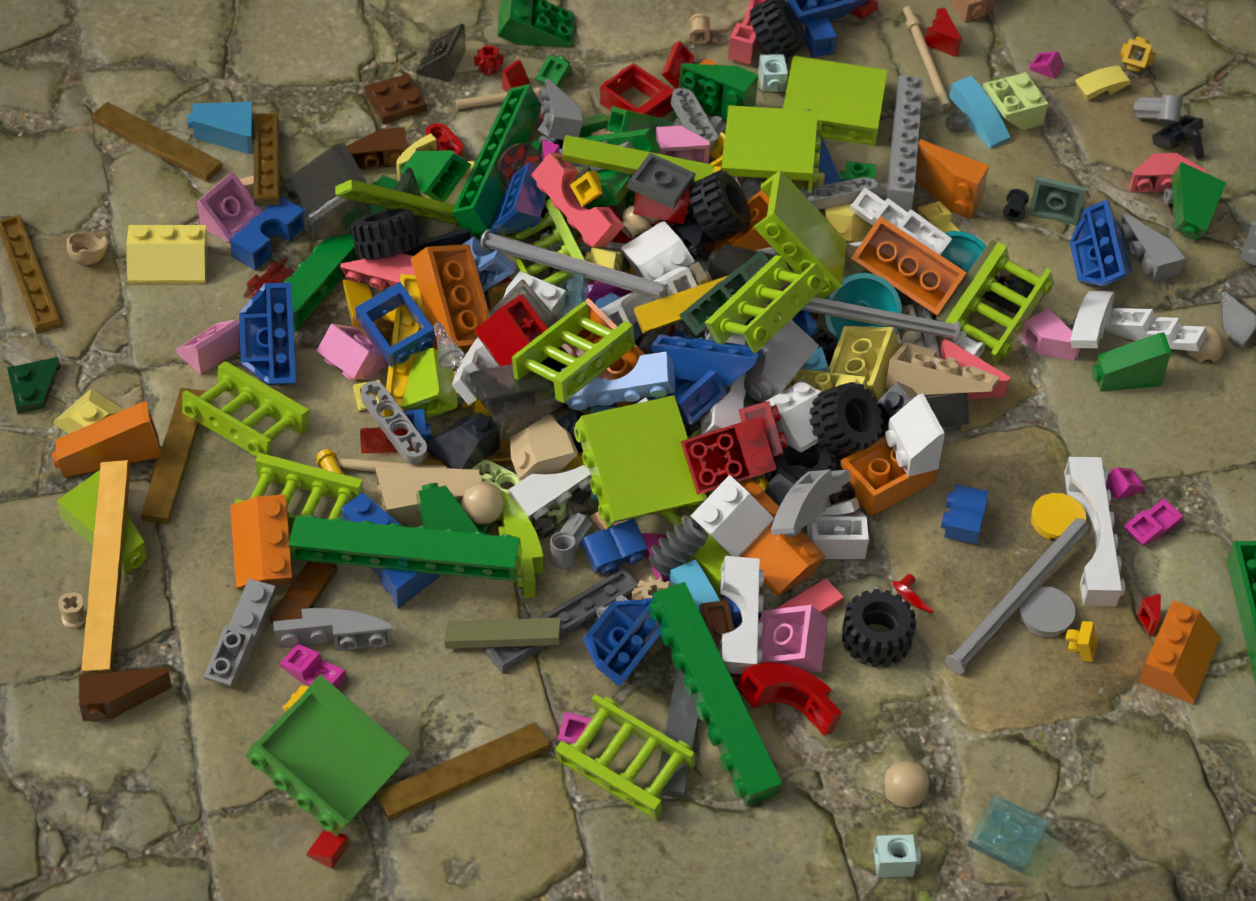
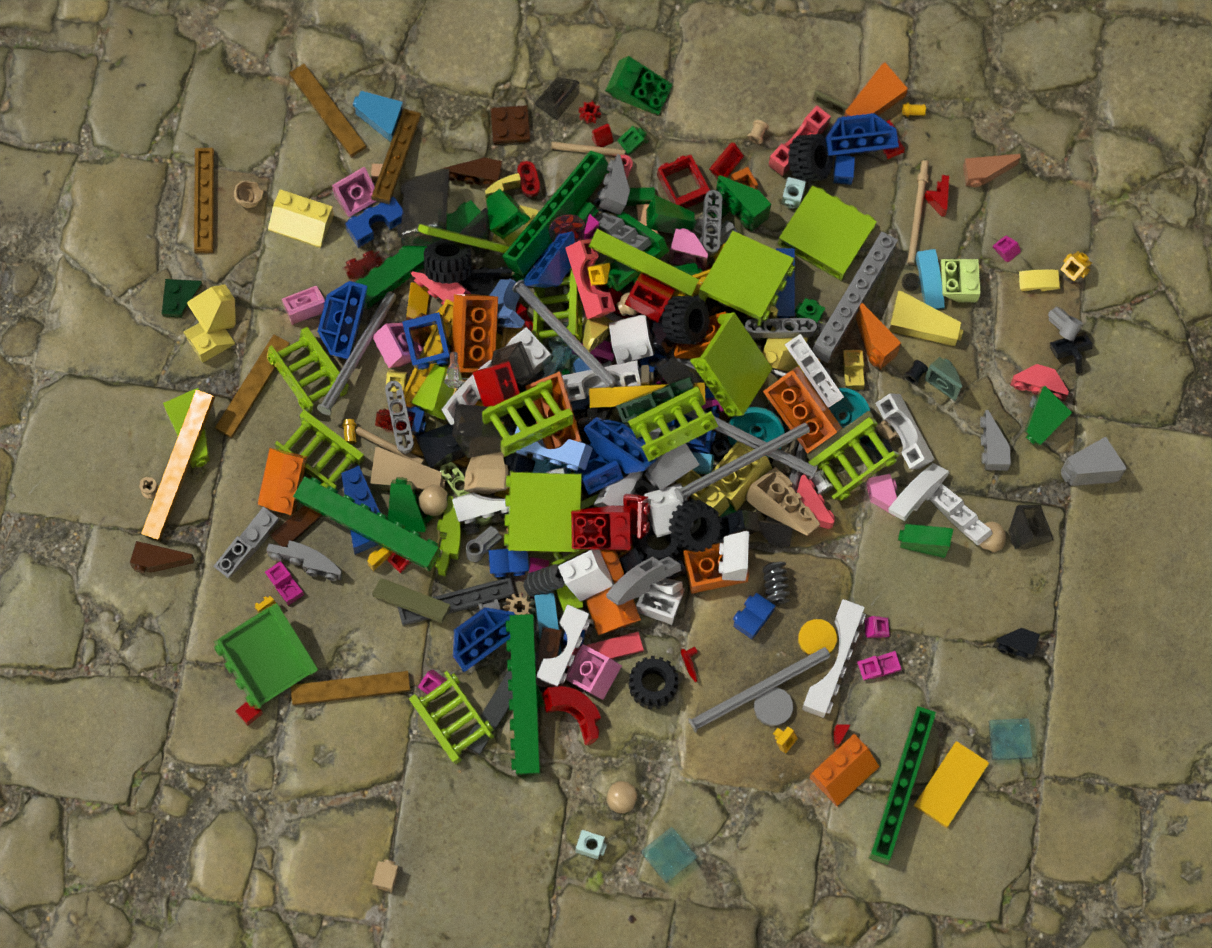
camera: 20 degrees right, 20 degrees up
(89, 374) = (214, 308): none -> light yellow slope
(119, 437) = (210, 368): orange slope -> none
(290, 435) = (357, 353): none -> light grey axle
(436, 595) = (377, 558): none -> yellow plate
(464, 592) = (398, 562): none -> red slope
(661, 180) = (648, 291): dark grey tile -> none
(813, 382) = (741, 462): none -> light grey axle
(974, 467) = (774, 583): none -> dark grey piece
(1001, 151) = (923, 321): none -> light yellow slope
(1028, 255) = (914, 446): none -> white arch
(1099, 247) = (956, 433): blue wedge -> none

